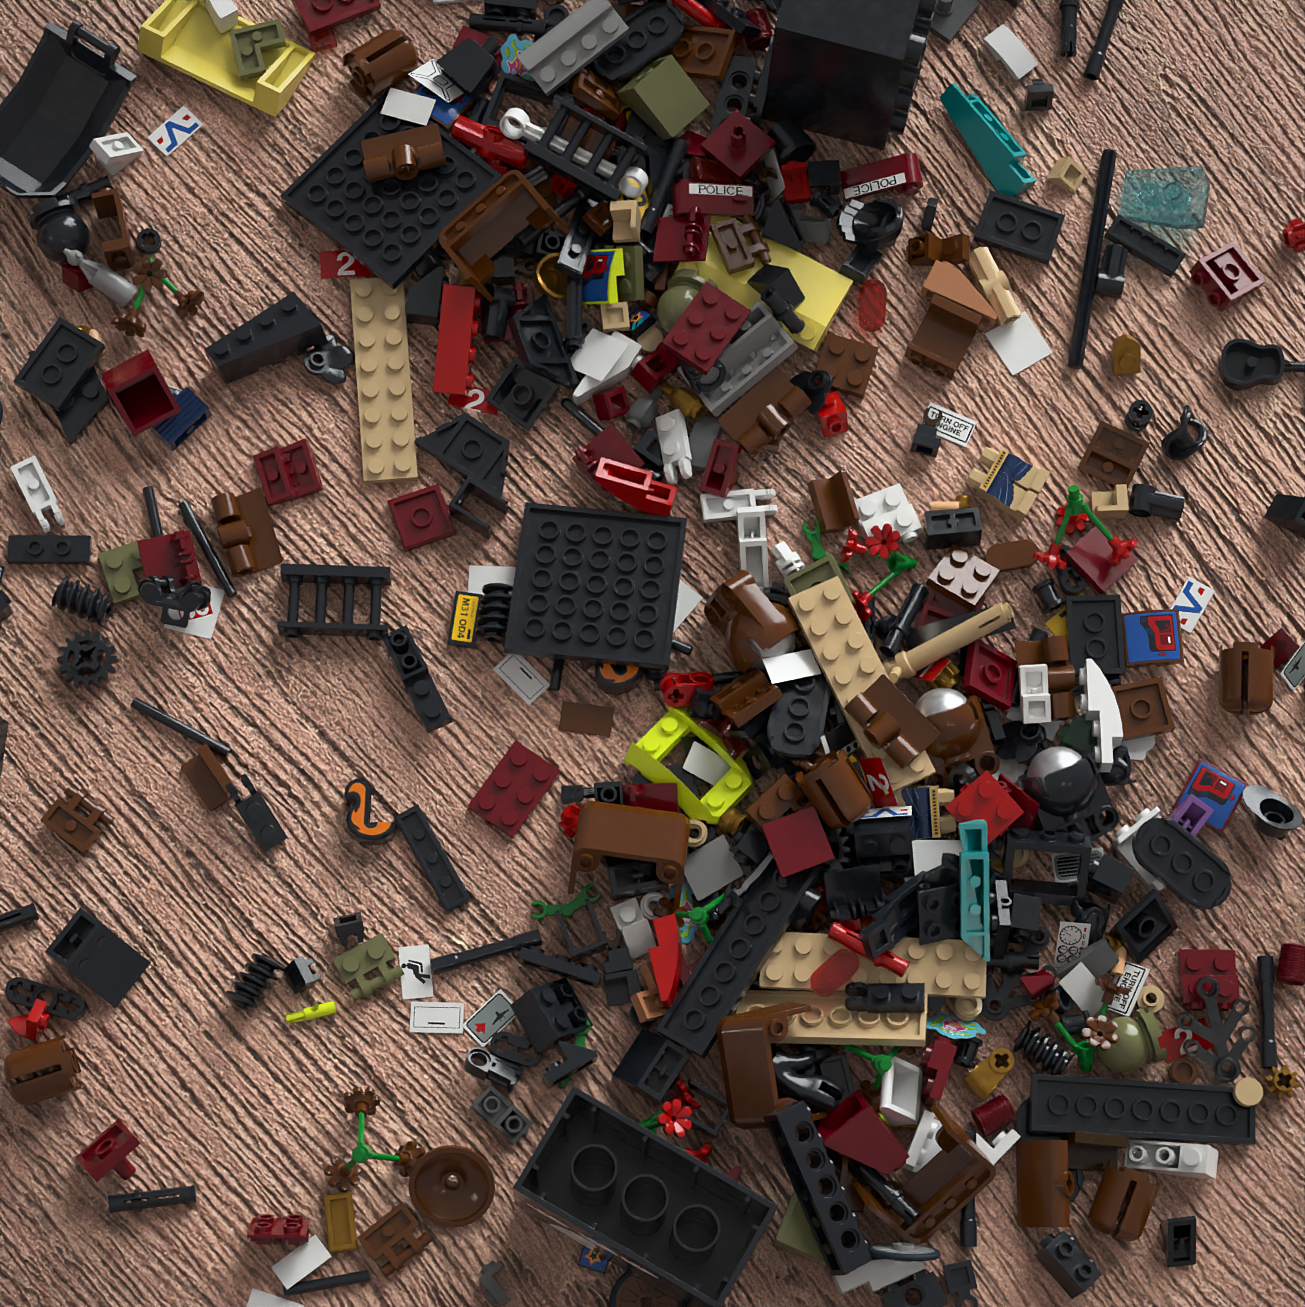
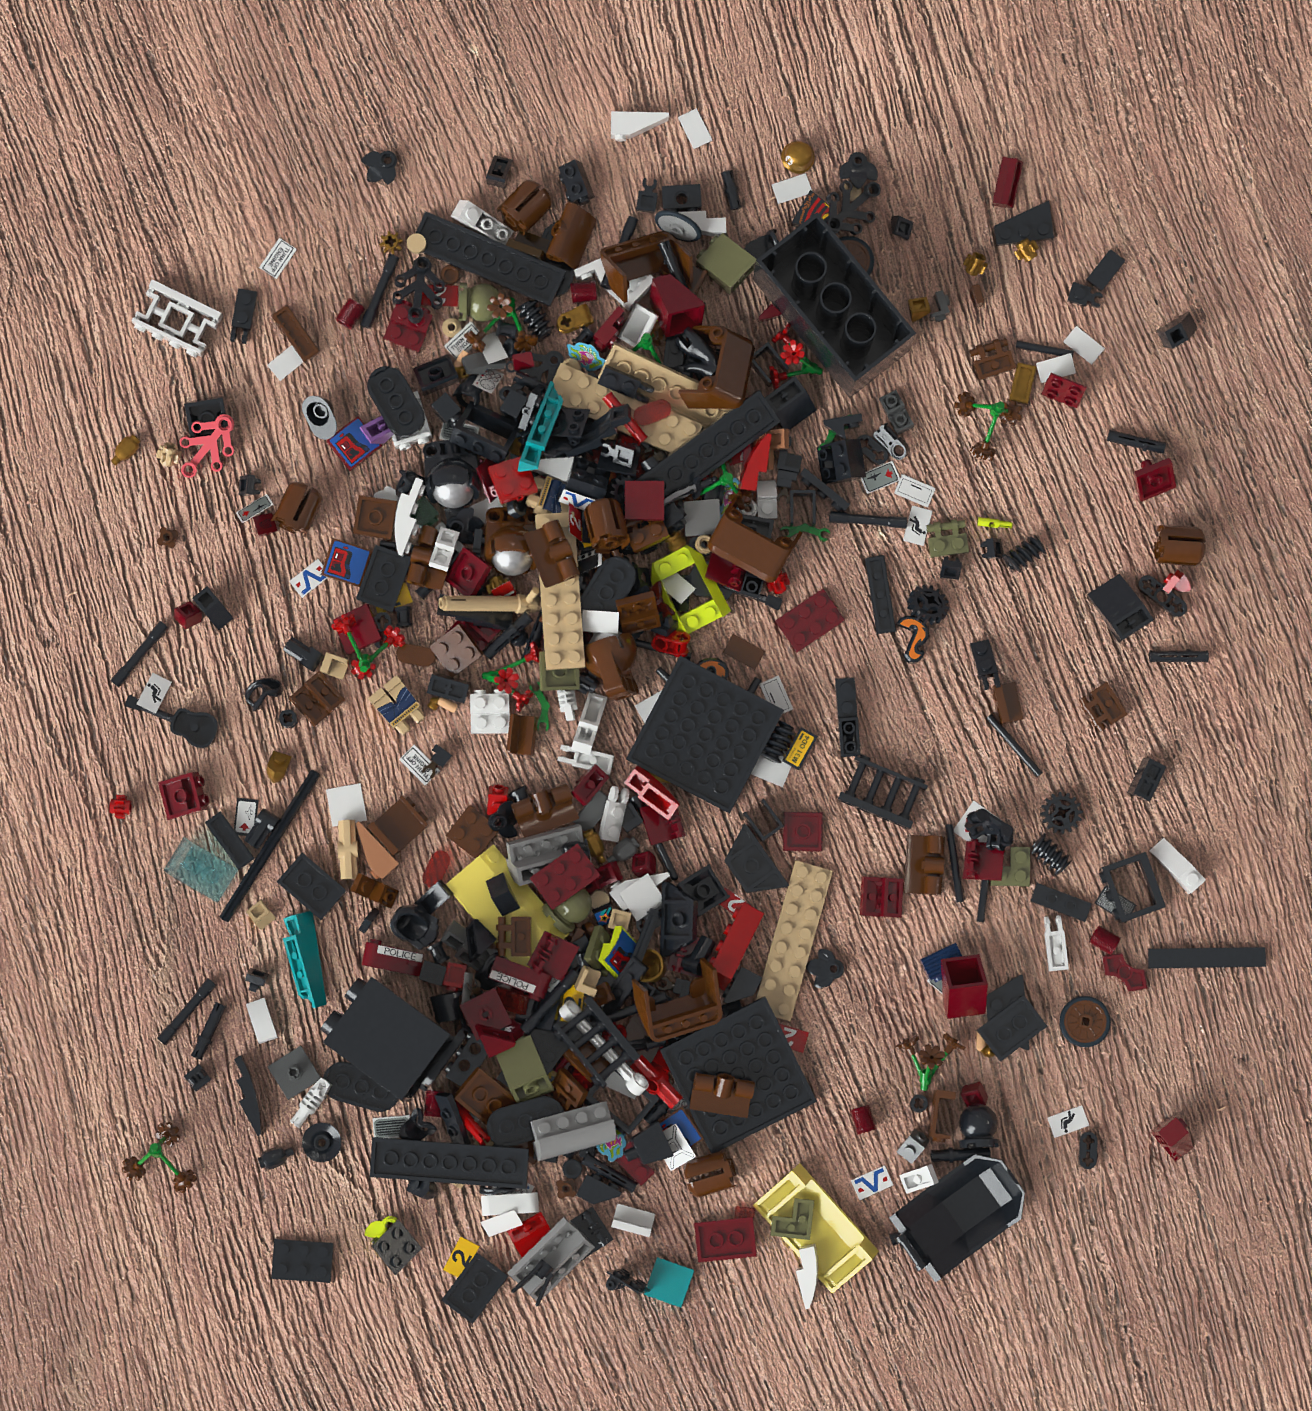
camera: 160 degrees left, 10 degrees up
(102, 278) = (960, 1081): light grey wheel -> none
(136, 188) = (913, 1145): none -> bracket
(213, 194) = (863, 1119): none -> dark red piece
(266, 339) = (863, 995): black wedge -> none
(373, 865) = (928, 604): none -> black gear
(408, 106) = (704, 1133): white sticker -> none
(448, 1201) = (945, 375): reddish brown dish -> none
(524, 1274) = (918, 308): none -> pearl gold slope
(714, 113) = (495, 1040): none -> dark red slope
(772, 1274) = (762, 244): none -> black piece
(782, 310) = (506, 872): black pin -> none
(804, 429) = (519, 793): none -> black piece
(805, 1182) = (725, 324): black brick -> none
(855, 897) = (621, 453): none -> plate
(1138, 285) = (245, 815): none -> white sticker

